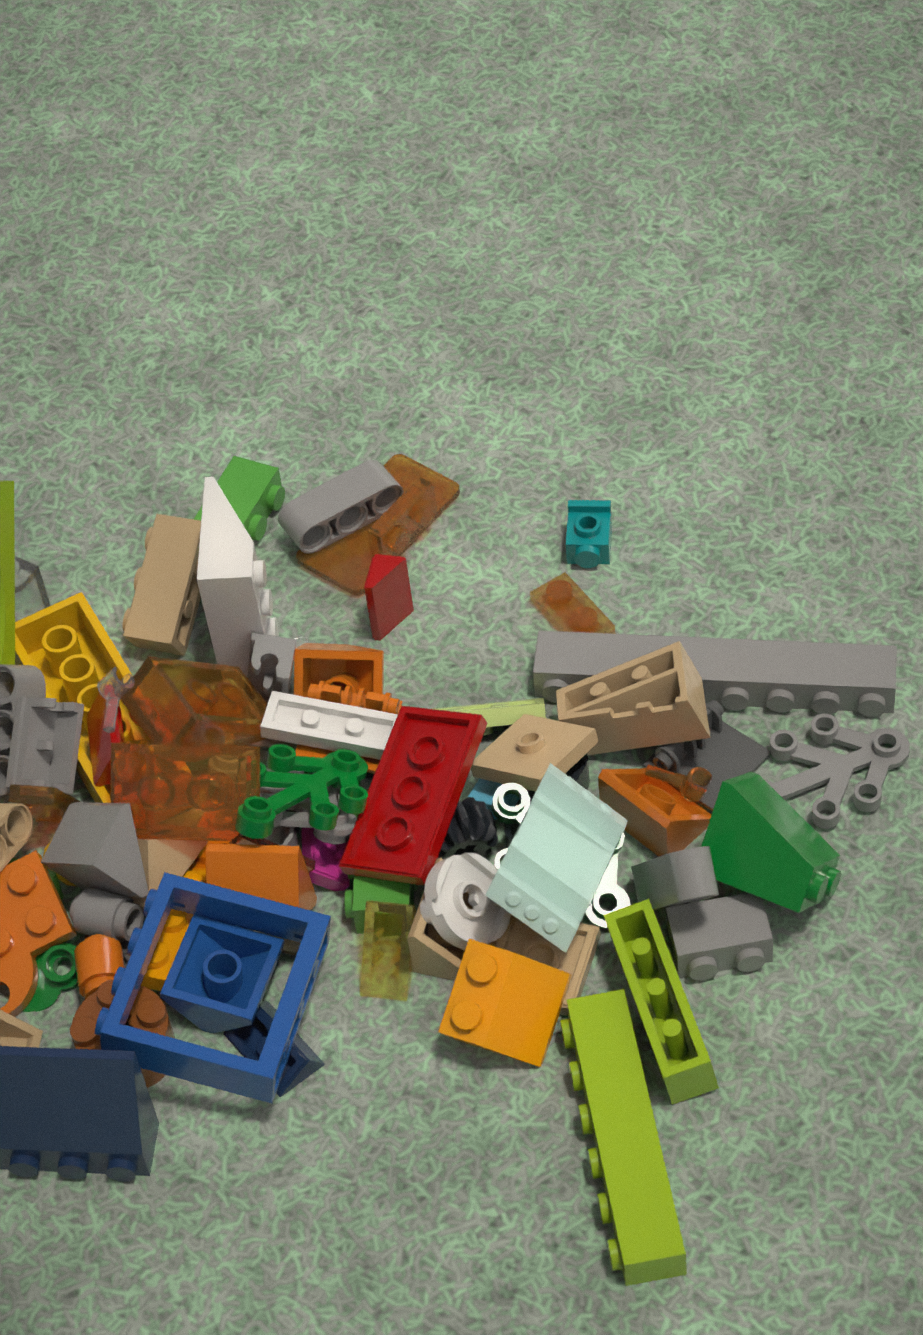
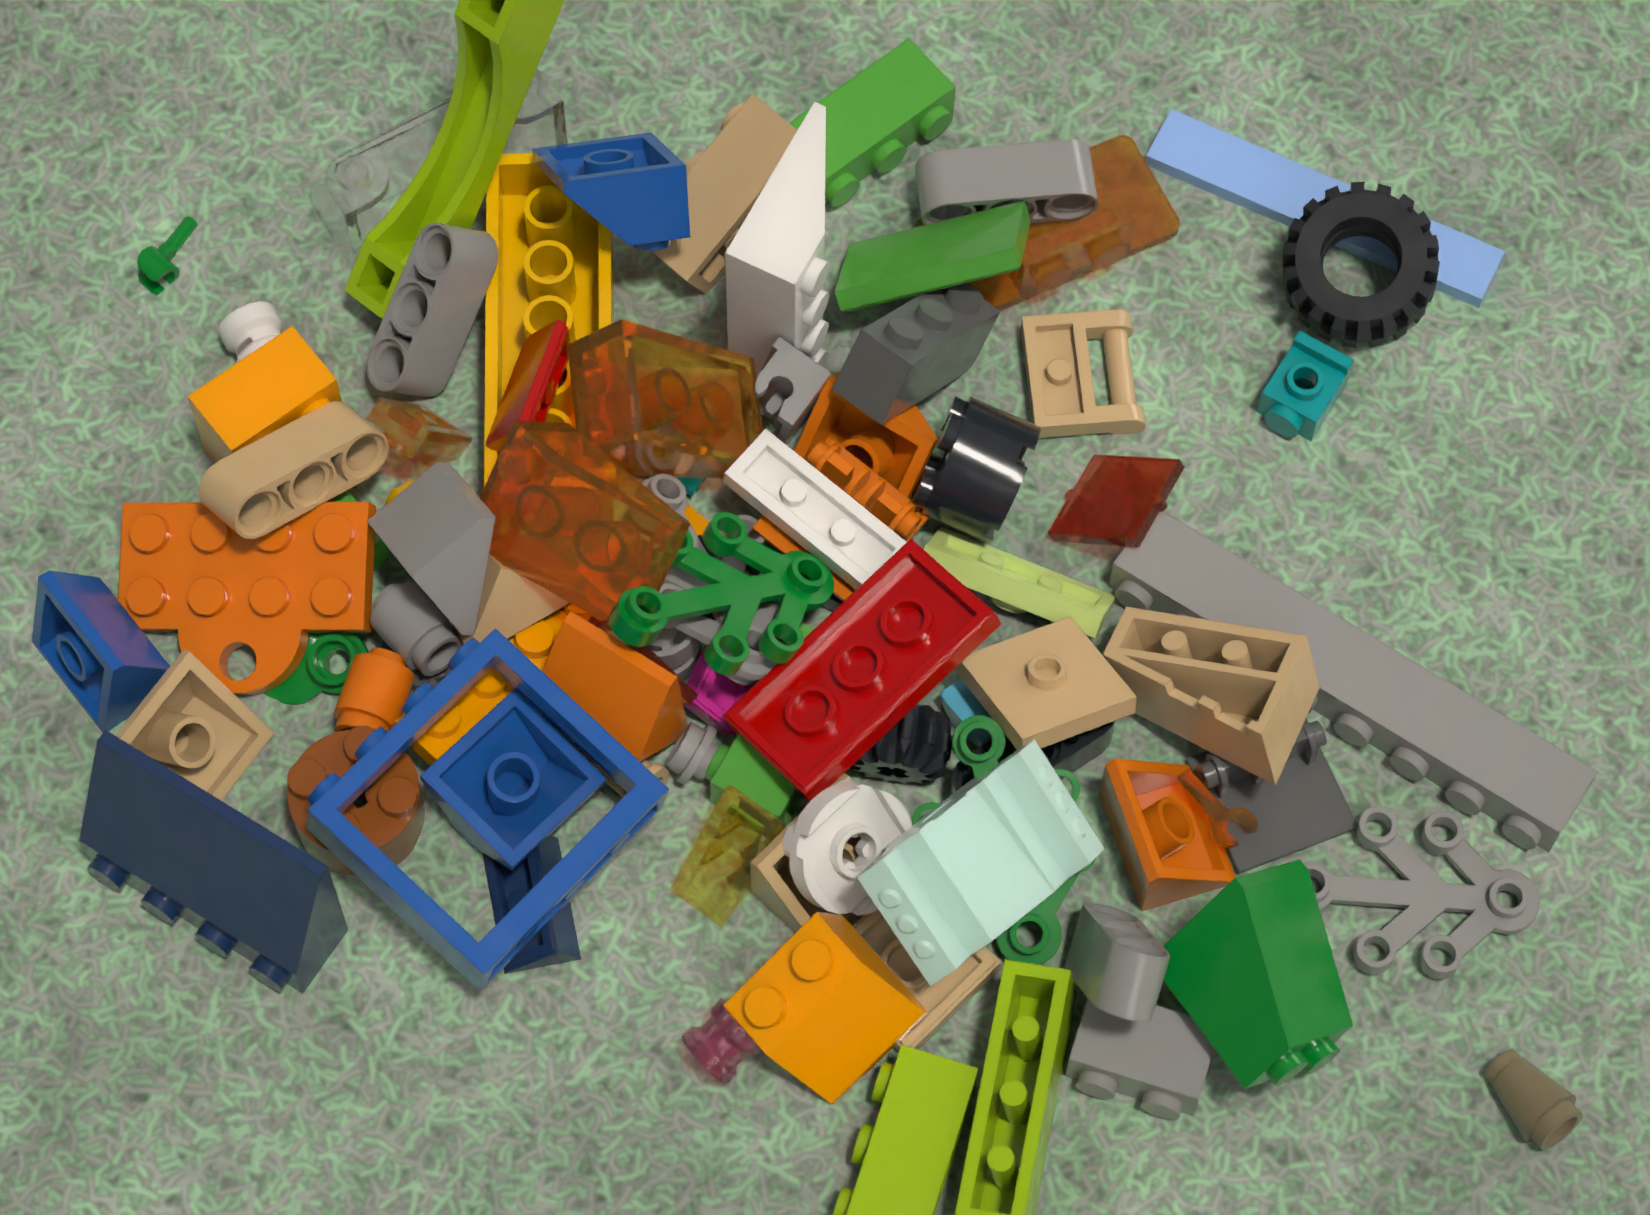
camera: 20 degrees right, 15 degrees up
(45, 743) = (451, 357): light grey hinge -> none
(105, 601) = (625, 184): none -> blue slope
(112, 690) = (557, 341): clear hand -> none
(321, 558) = (933, 256): none -> bright green tile
(331, 903) = (692, 752): none -> light grey plate
(336, 611) = (915, 350): none -> dark grey brick
(387, 594) = (991, 351): red slope -> none
(416, 659) = (978, 468): none -> black brick
(439, 598) = (1062, 377): none -> tan plate
(449, 1059) = (720, 1043): none -> clear pink wheel
(512, 642) = (1116, 500): none -> clear red piece
(540, 439) = (1283, 187): none -> light blue tile
(570, 607) = (1222, 488): clear orange plate -> none
(582, 421) = (1369, 215): none -> black tyre

